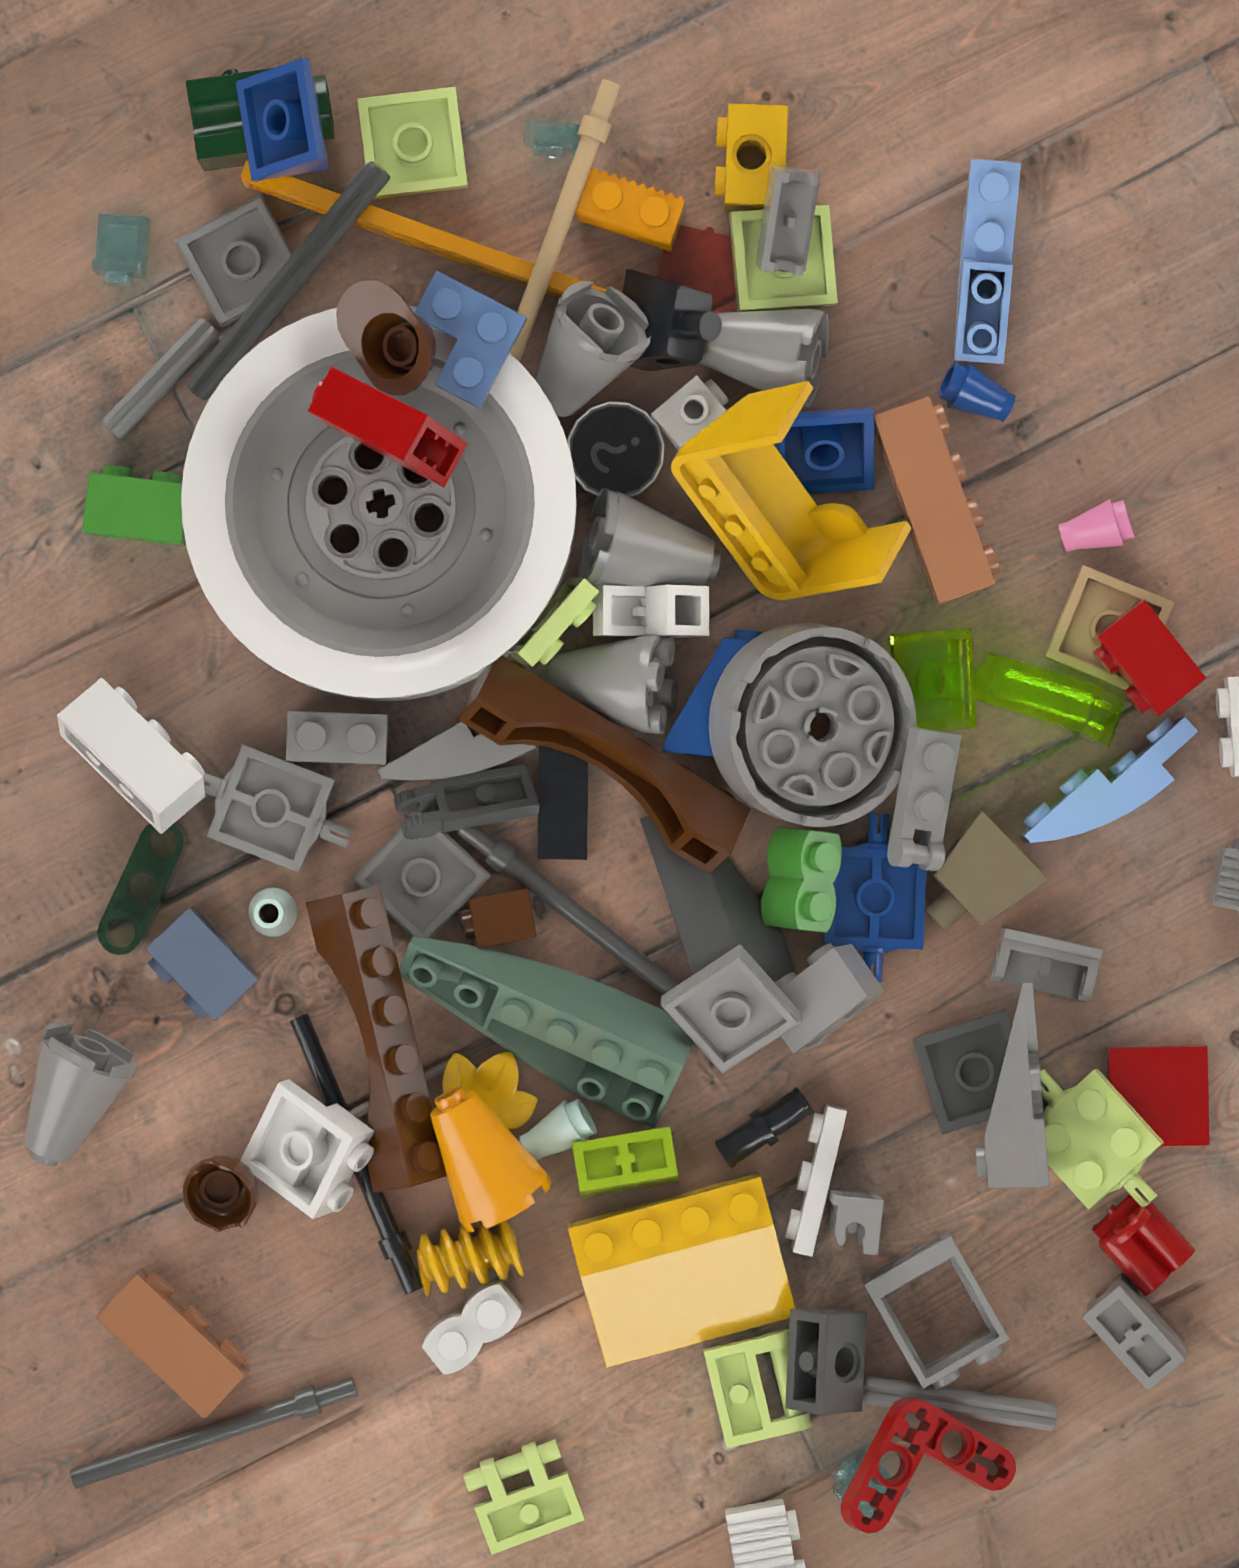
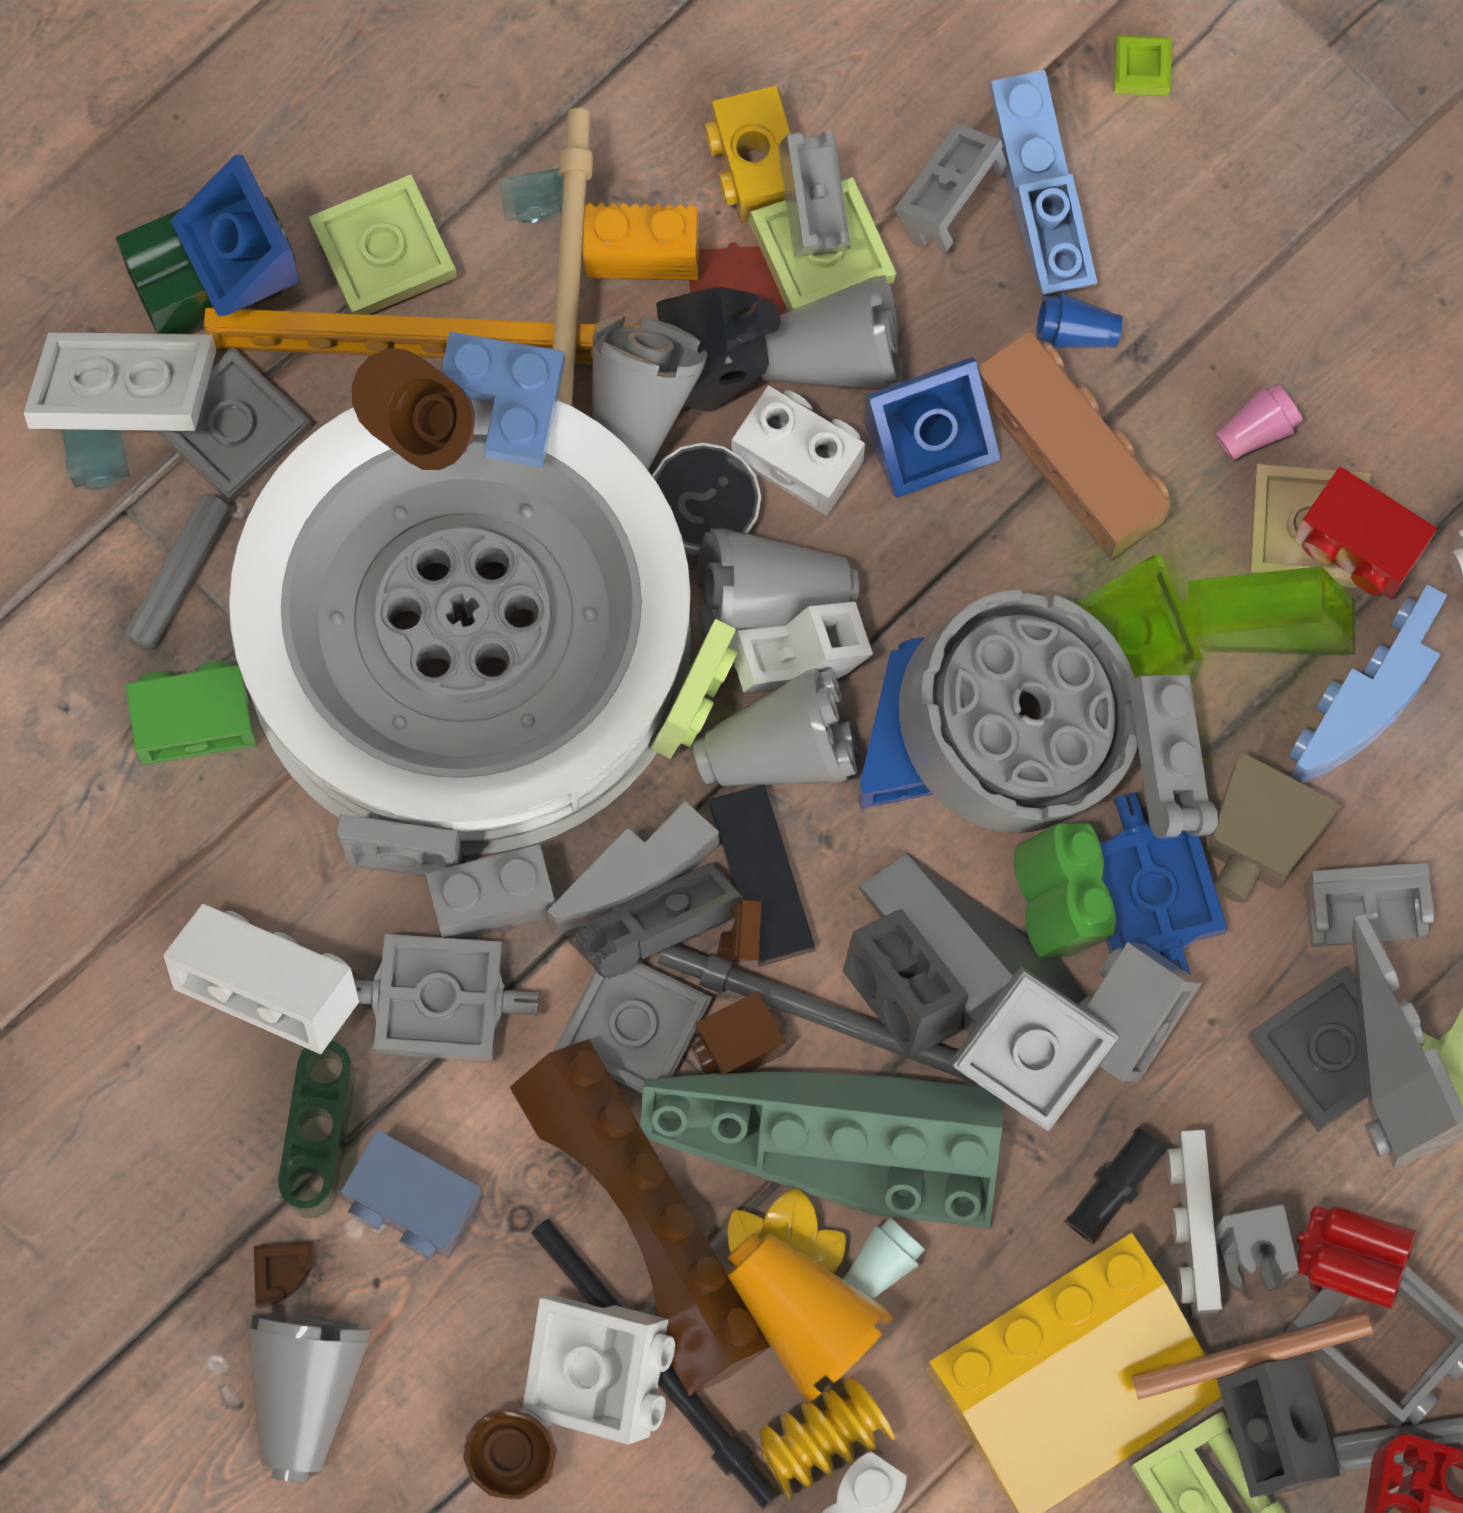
camera: 25 degrees left, 15 degrees down
(82, 989) = (280, 1271): none -> reddish brown tile
(157, 202) = (120, 381): none -> white plate
(274, 681) = (397, 846): none -> light grey tile
(286, 907) = (476, 1127): light aqua cone -> none
(288, 280) = (294, 404): dark grey axle -> none
(387, 426) = (446, 505): red slope -> none
(528, 839) = (744, 938): none -> reddish brown tile
(625, 1162) = (970, 1273): lime hinge -> none
(647, 917) = (905, 982): none -> dark grey brick
(688, 811) = (909, 850): reddish brown arch -> none
(765, 511) = (884, 503): yellow windscreen -> none
(823, 1301) = (1252, 1354): none -> nougat bar
(906, 238) = (948, 183): none -> light grey hinge
(929, 1250) = (1354, 1254): none -> red piece
(1111, 173) = (1142, 65): none -> lime tile

